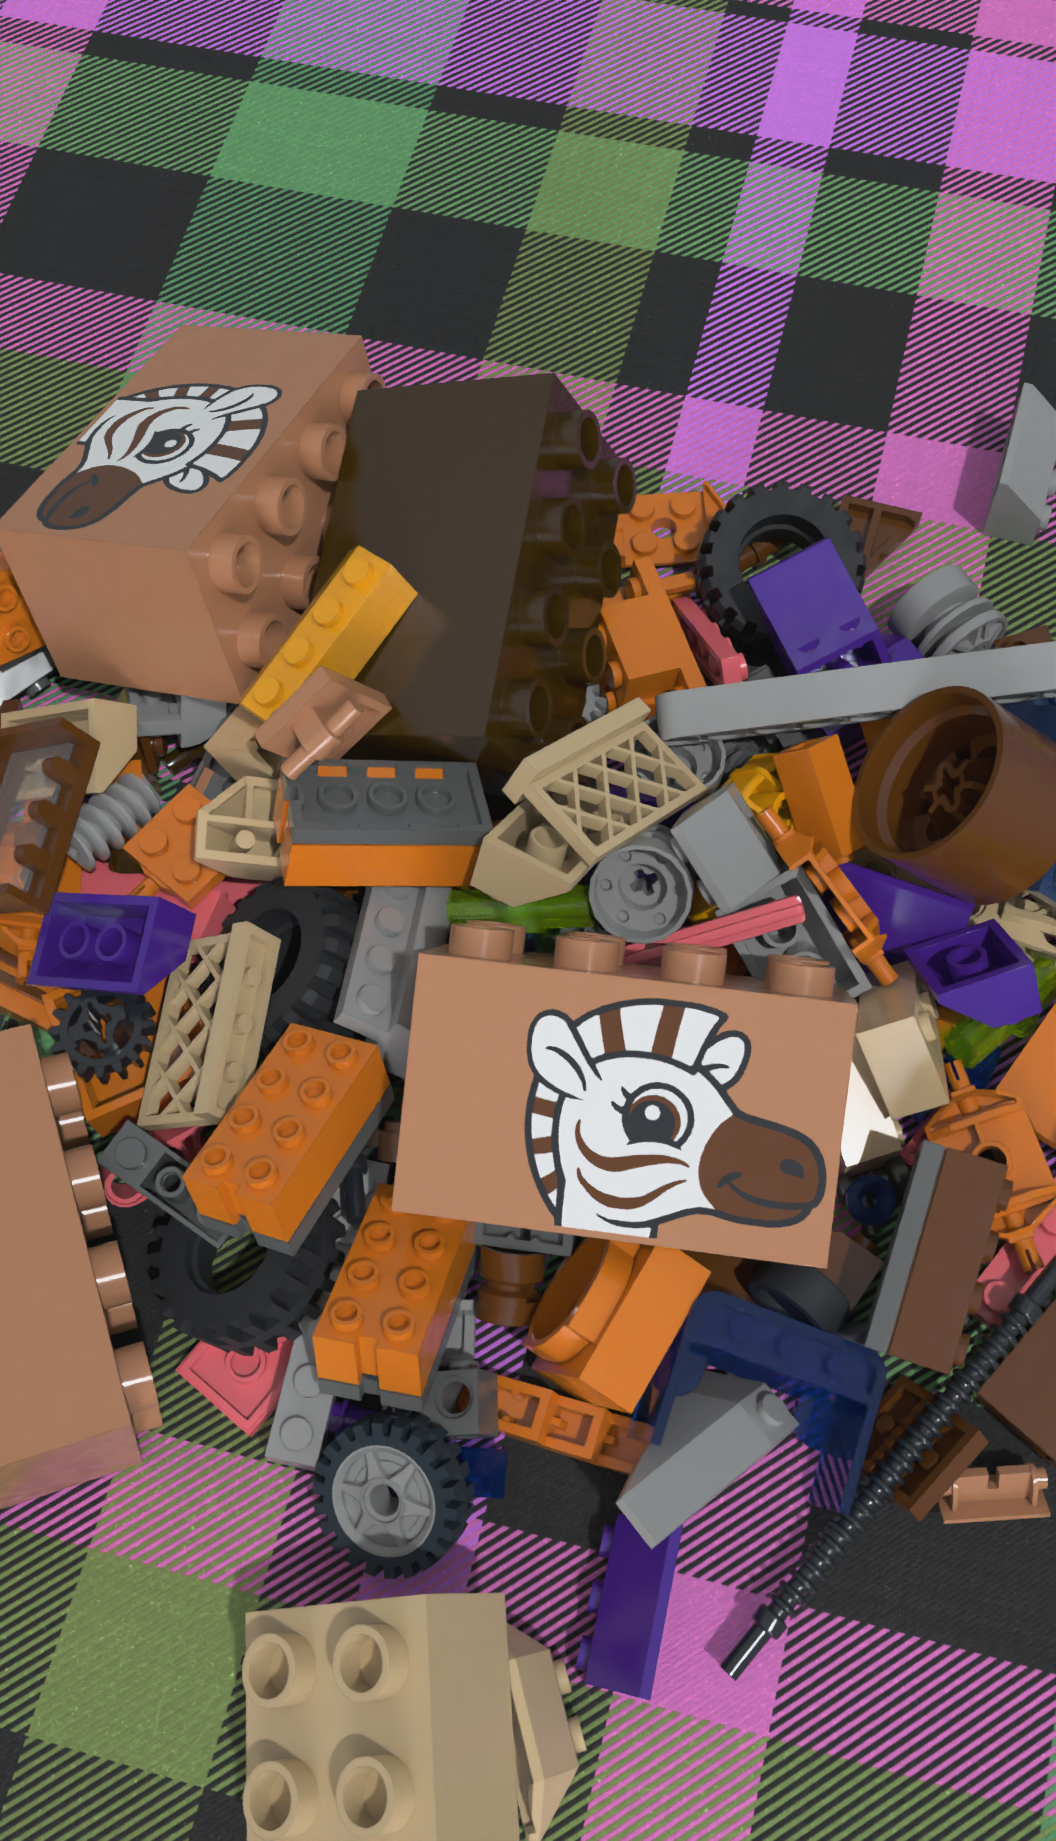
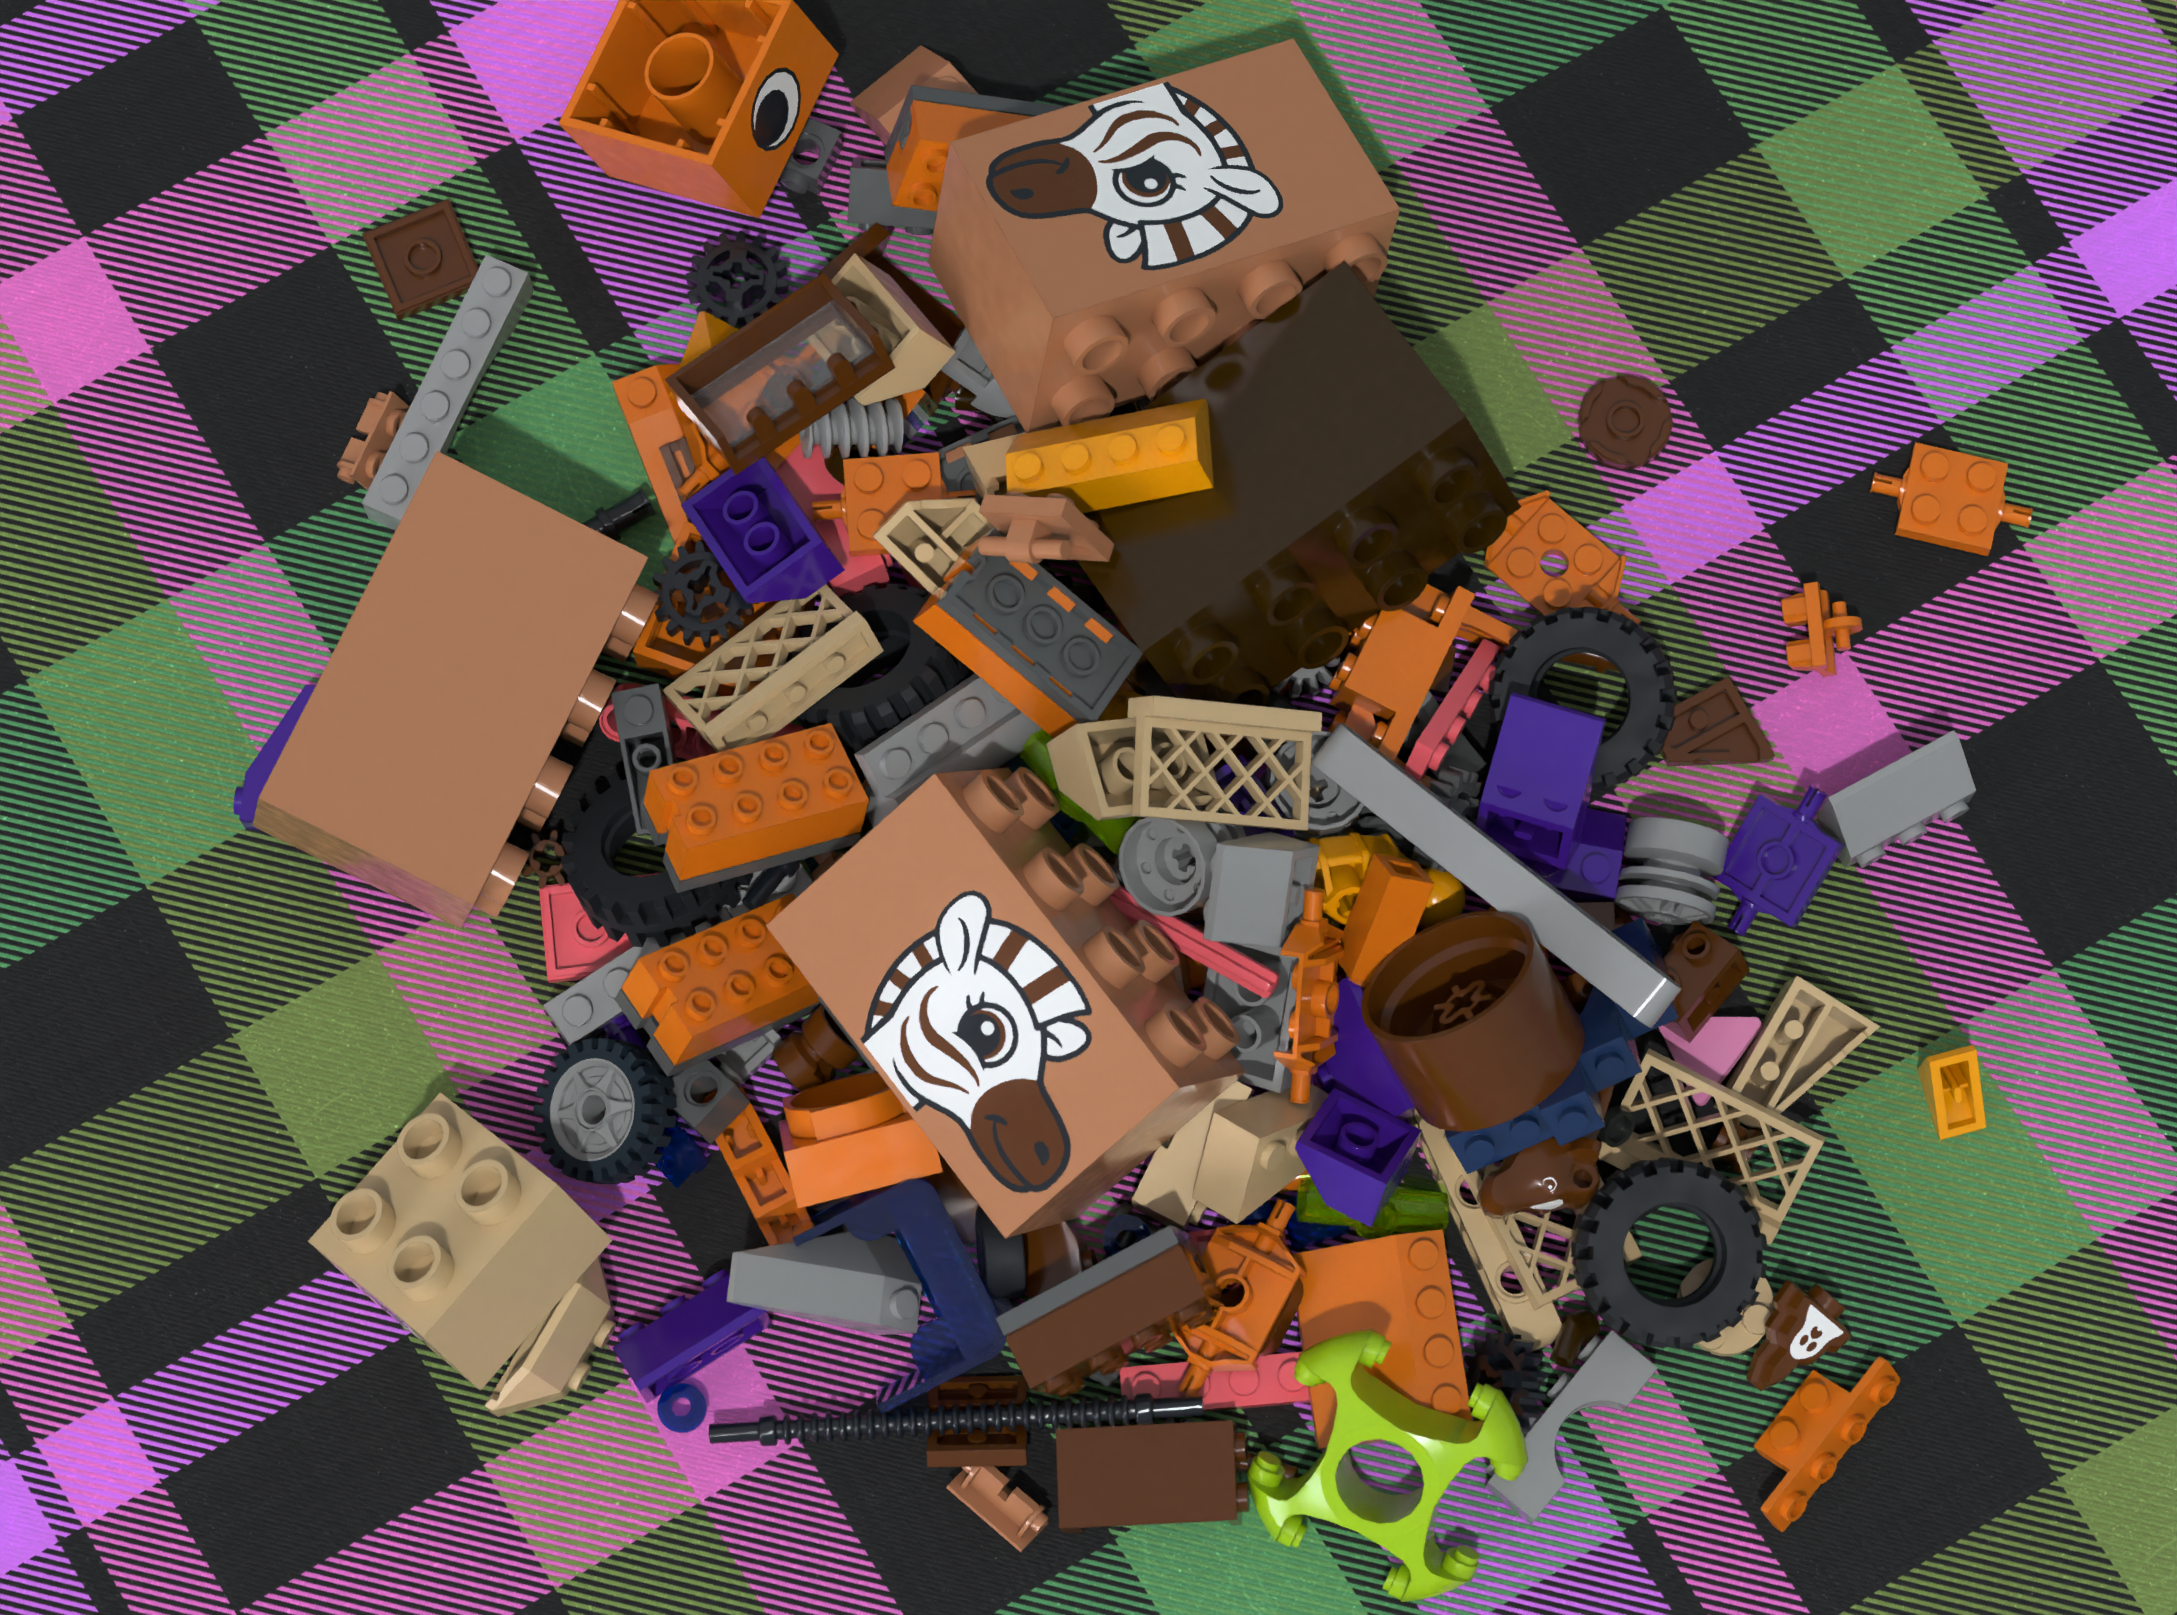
camera: 40 degrees right, 10 degrees up
(150, 1339) = (542, 847): none -> reddish brown gear
(624, 418) = (1625, 422): none -> reddish brown tile
(699, 1670) = (685, 1423): none -> clear blue plate
(851, 301) = (1951, 499): none -> orange plate
(868, 420) = (1814, 609): none -> orange hips
(1002, 559) = (1778, 860): none -> dark purple plate

